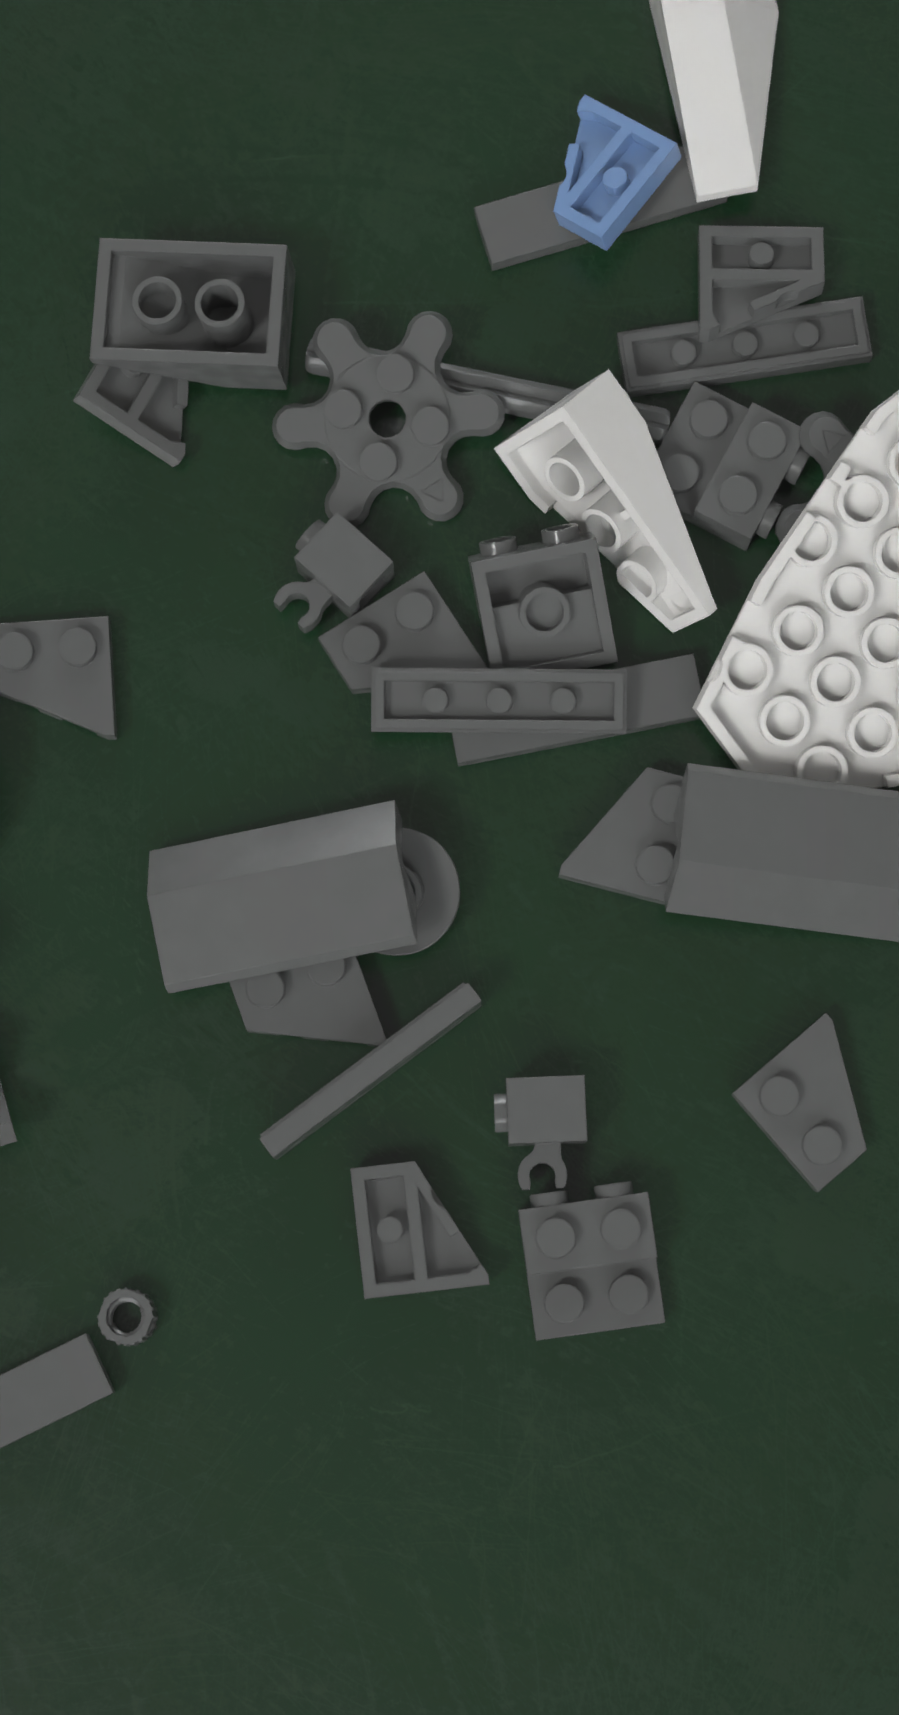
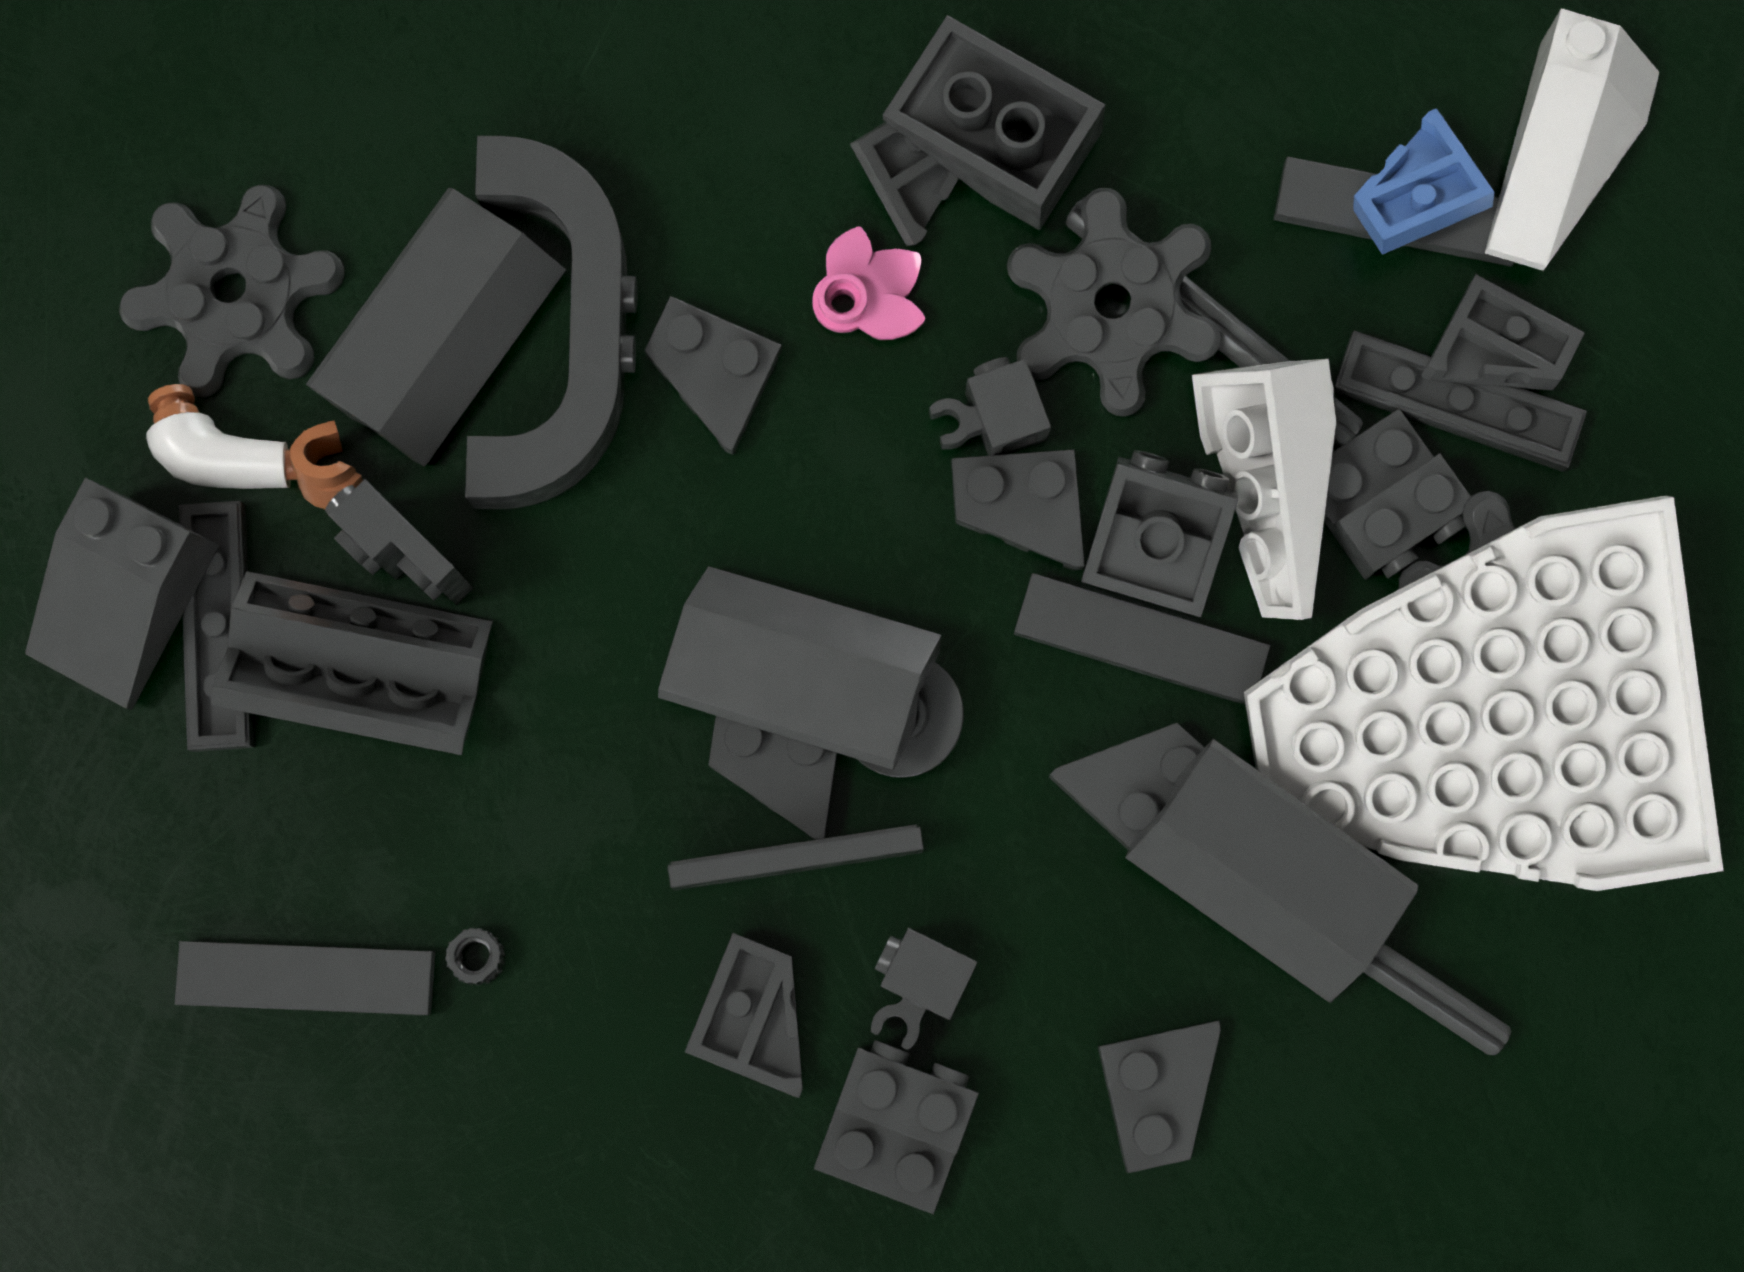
camera: 25 degrees right, 0 degrees up
(165, 516) = (875, 283): none -> bright pink plate
(499, 700) = (1078, 596): dark grey tile -> none

